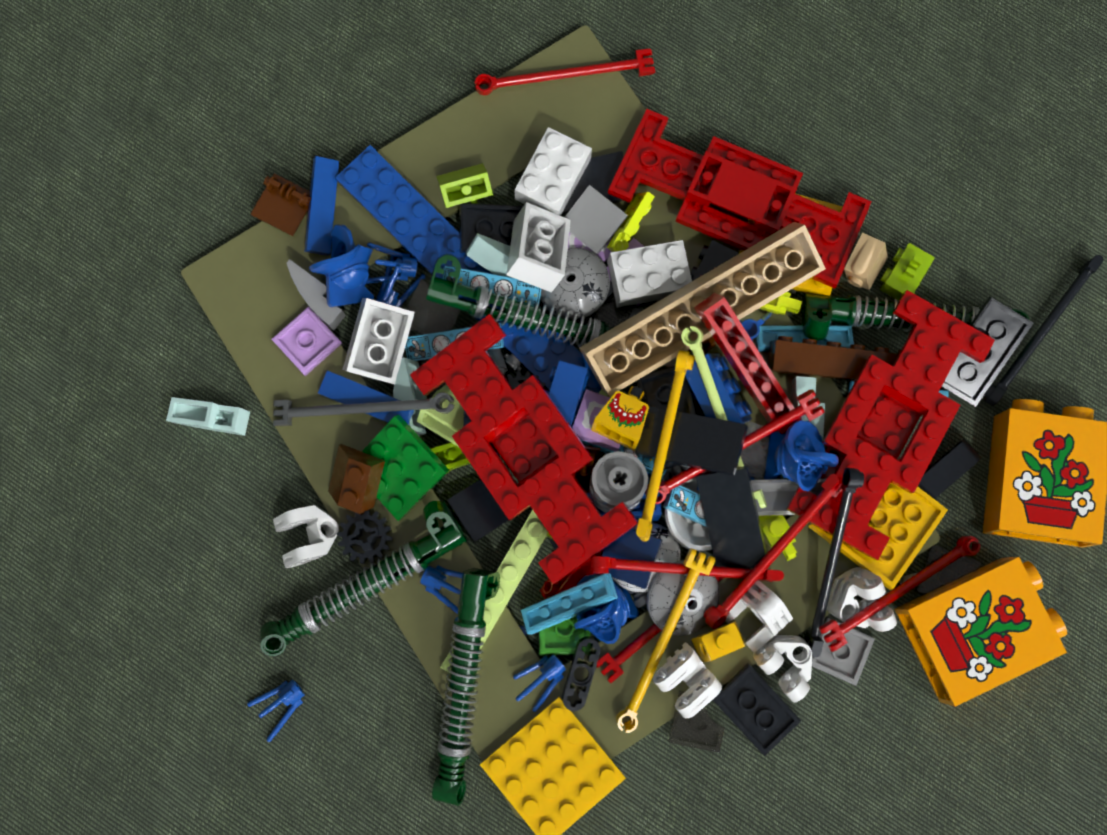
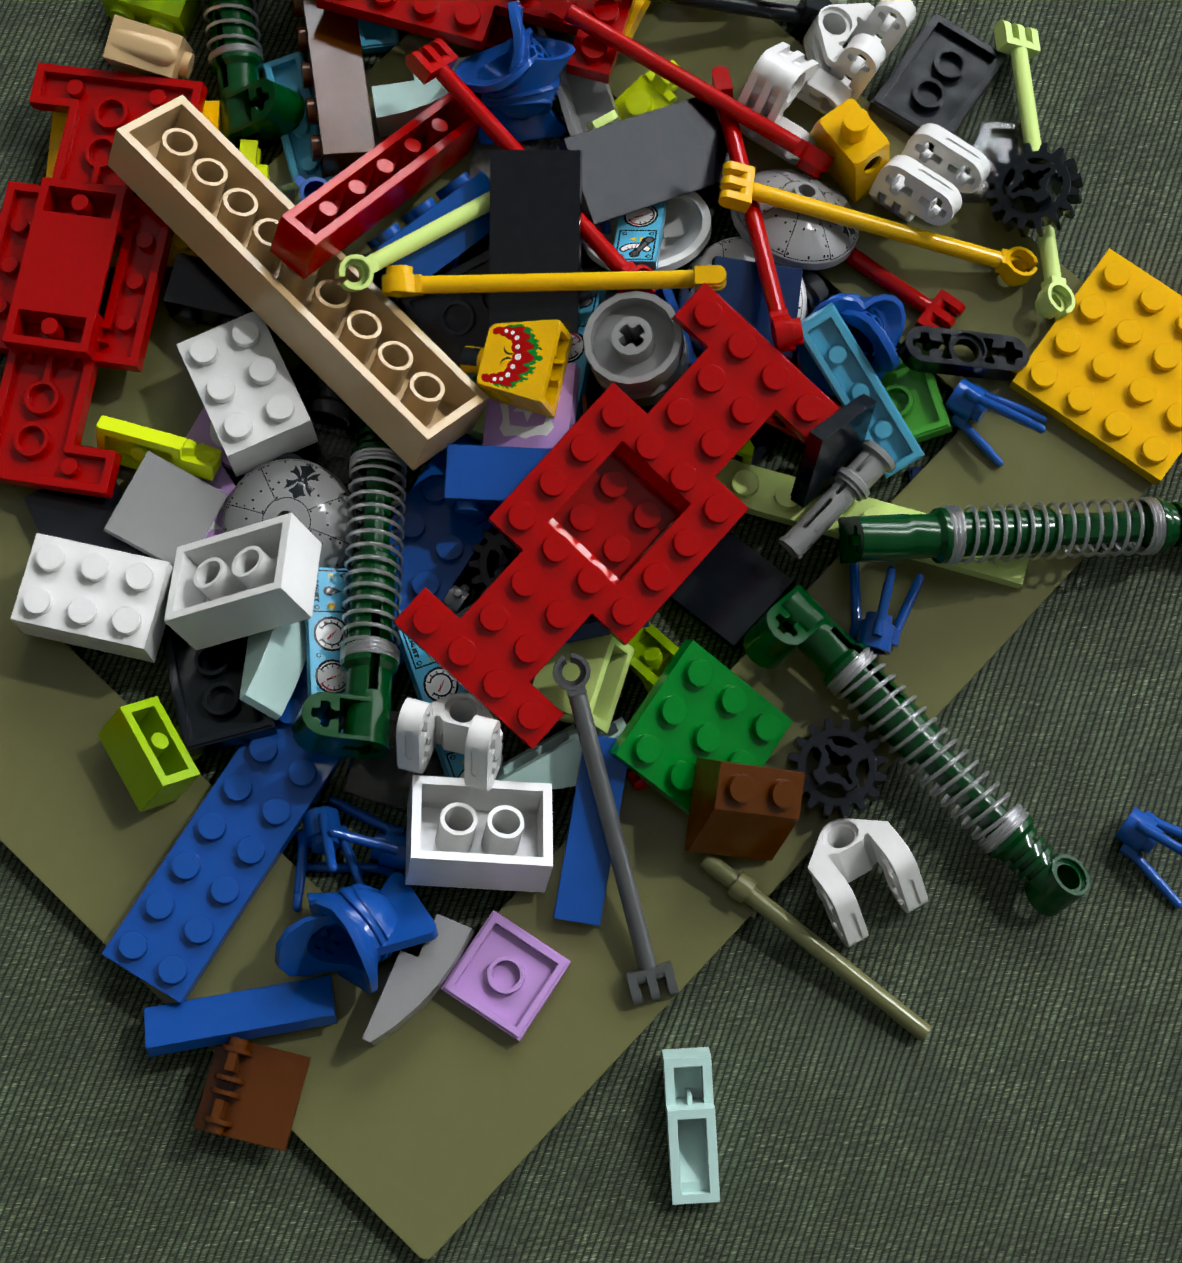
camera: 105 degrees left, 5 degrees down
(317, 471) = (742, 888): none -> olive bar
(435, 319) = (457, 725): none -> white piece
(515, 584) = (850, 485): none -> light grey pin
(535, 578) = (831, 446): none -> black tile
(665, 730) = (1040, 170): none -> black gear
(770, 765) = (1022, 46): none -> yellowish green hinge

